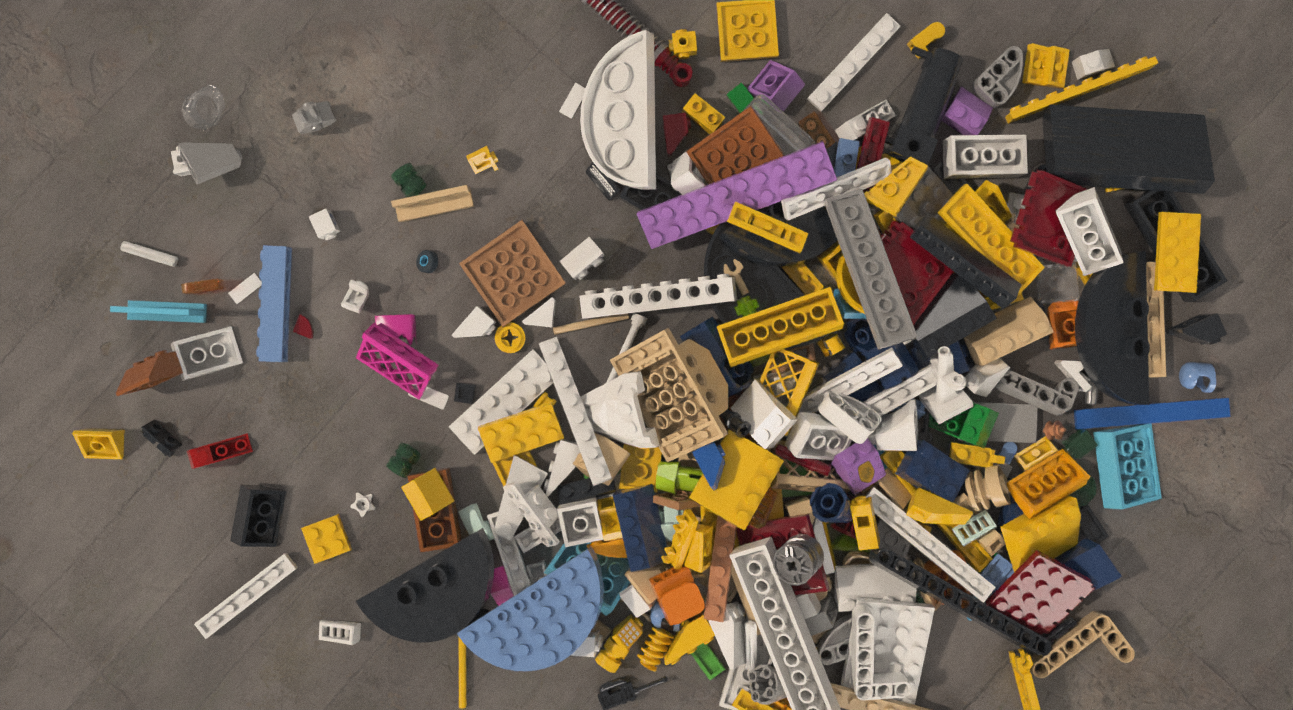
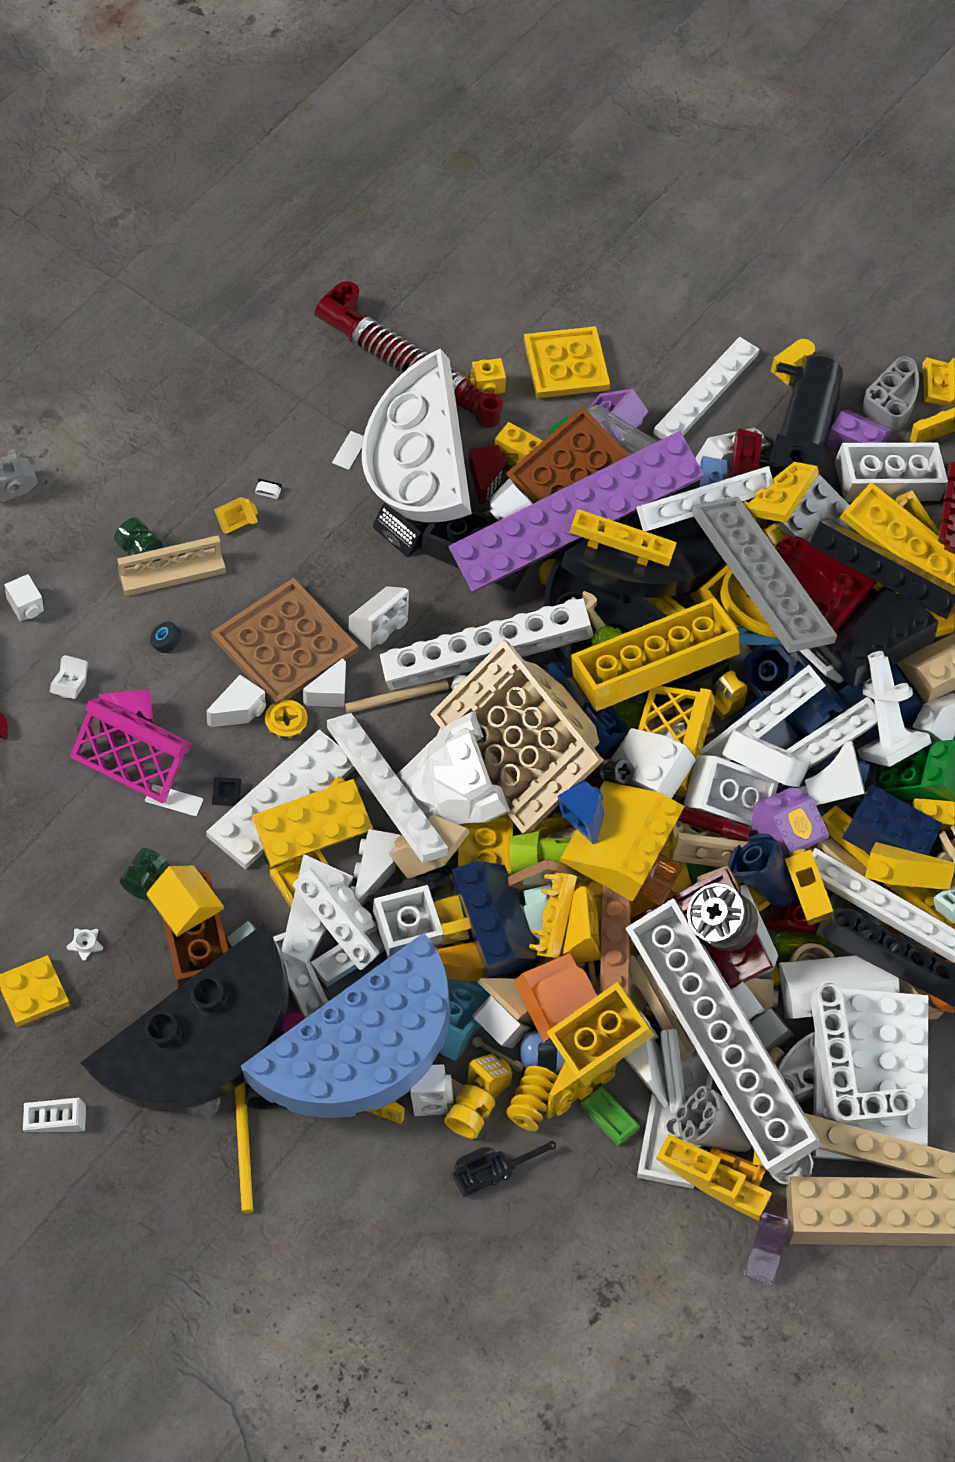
camera: 10 degrees left, 30 degrees down
(509, 134) = (268, 488): none -> white piece
(702, 638) = (600, 1033): none -> yellow brick

